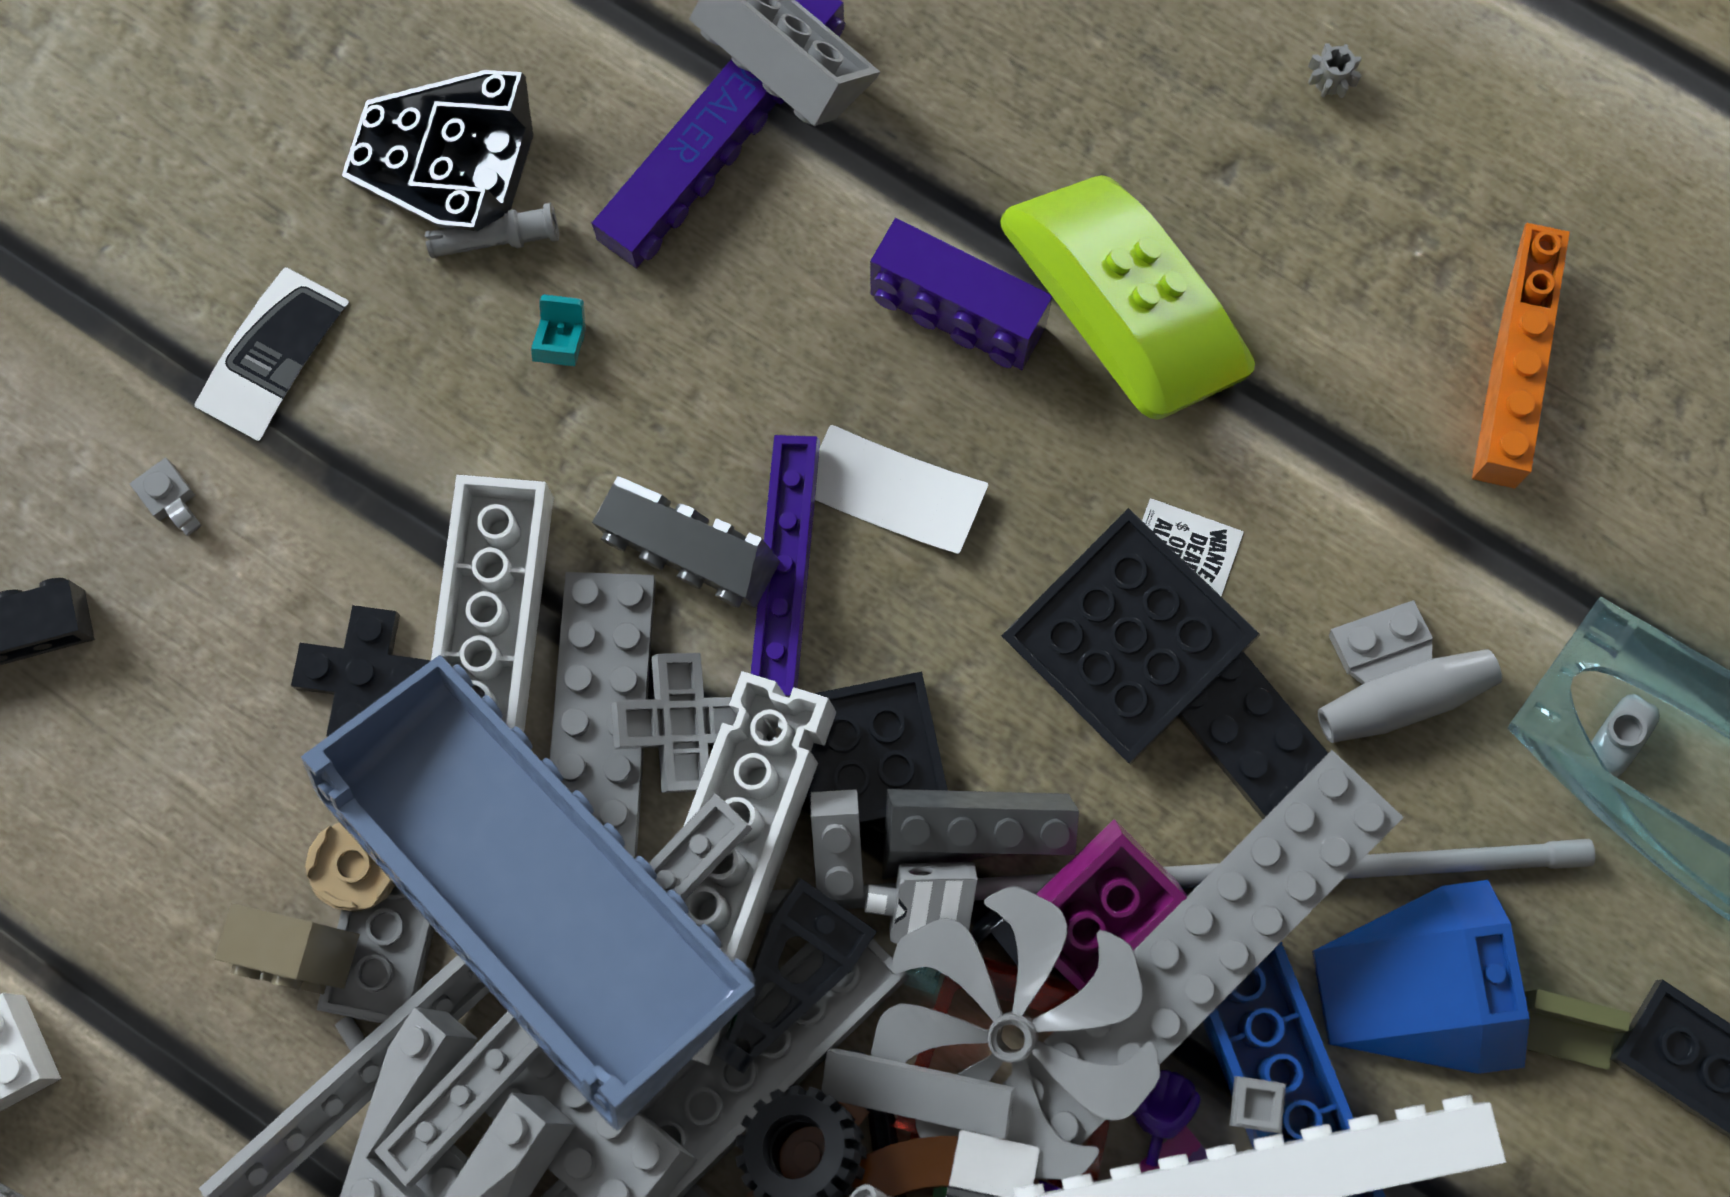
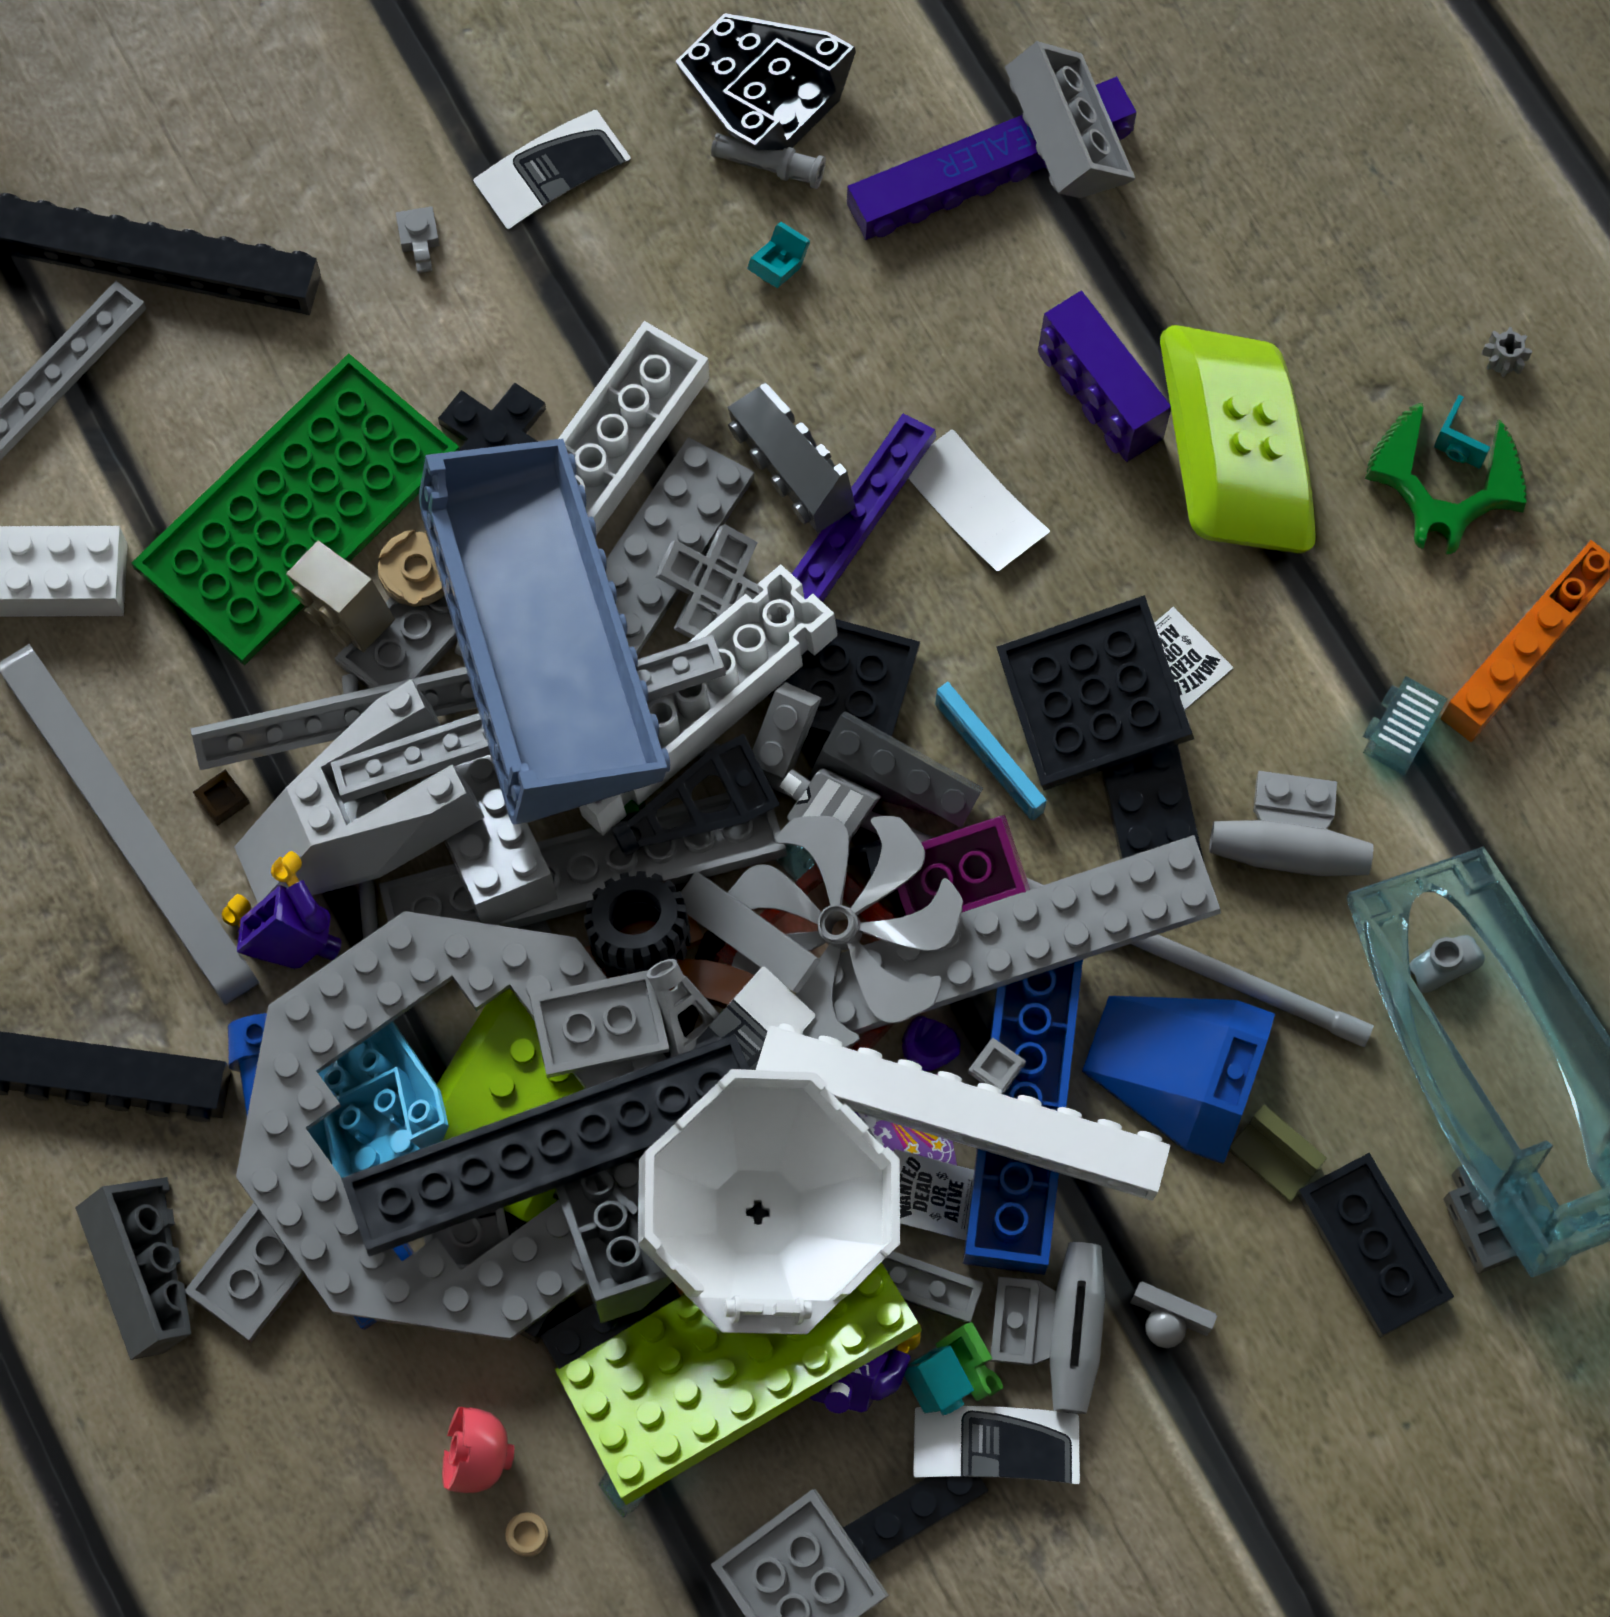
camera: 25 degrees right, 5 degrees down
(190, 830) = (322, 473): none -> green plate
(1055, 751) = (990, 751): none -> medium azure tile
(1288, 240) = (1393, 465): none -> green piece
(1337, 189) = (1459, 446): none -> teal bracket
(1447, 506) = (1404, 725): none -> clear light blue brick

